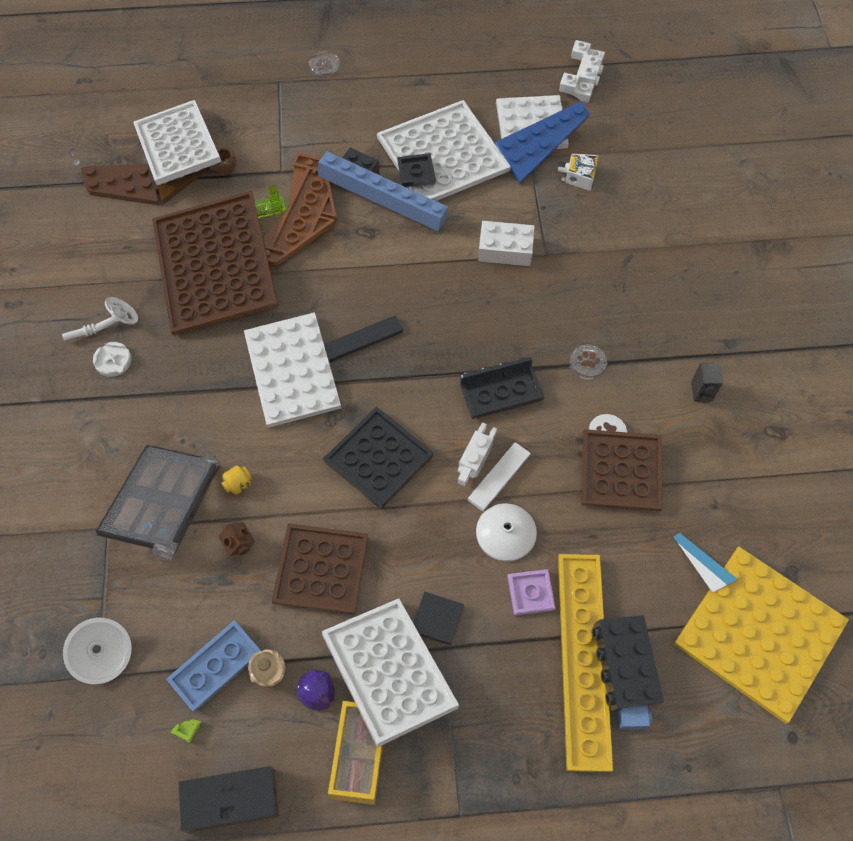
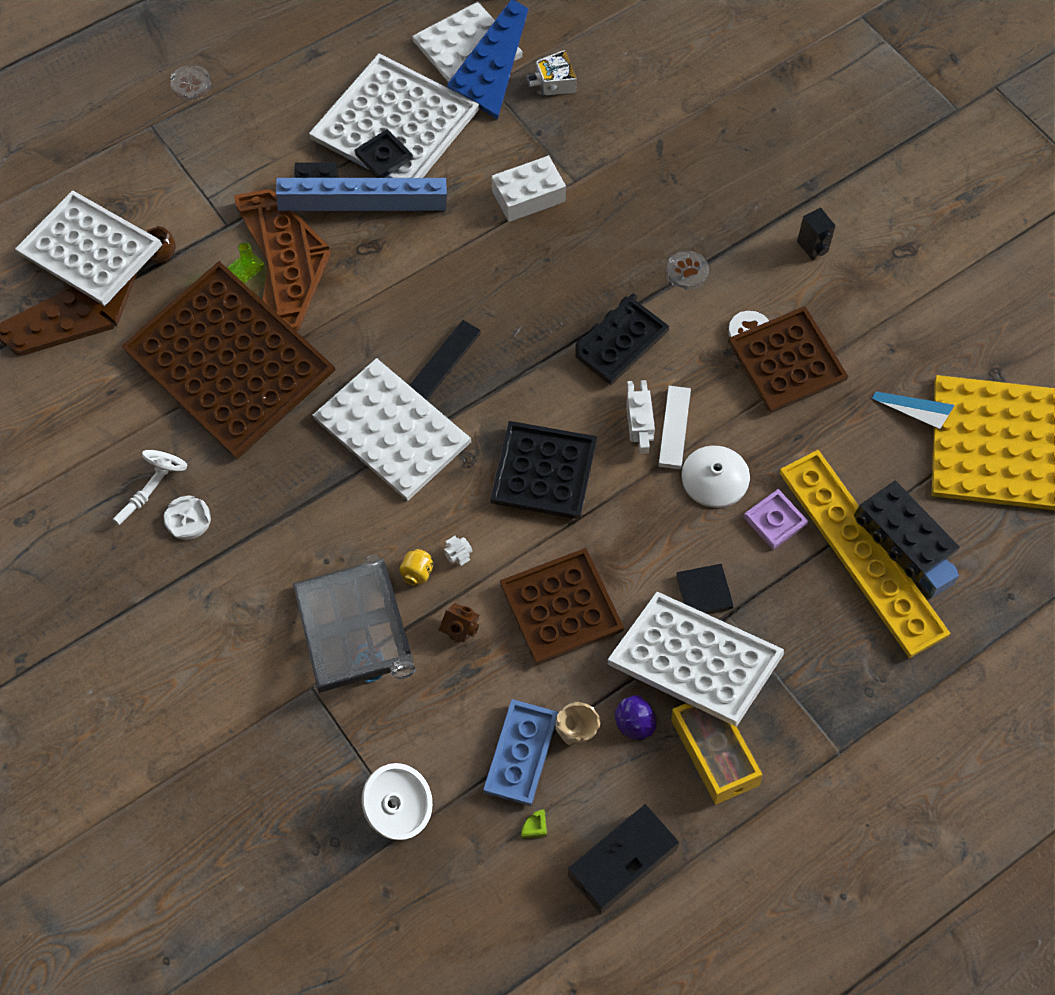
camera: 30 degrees left, 0 degrees up
(273, 483) = (457, 550): none -> white gear

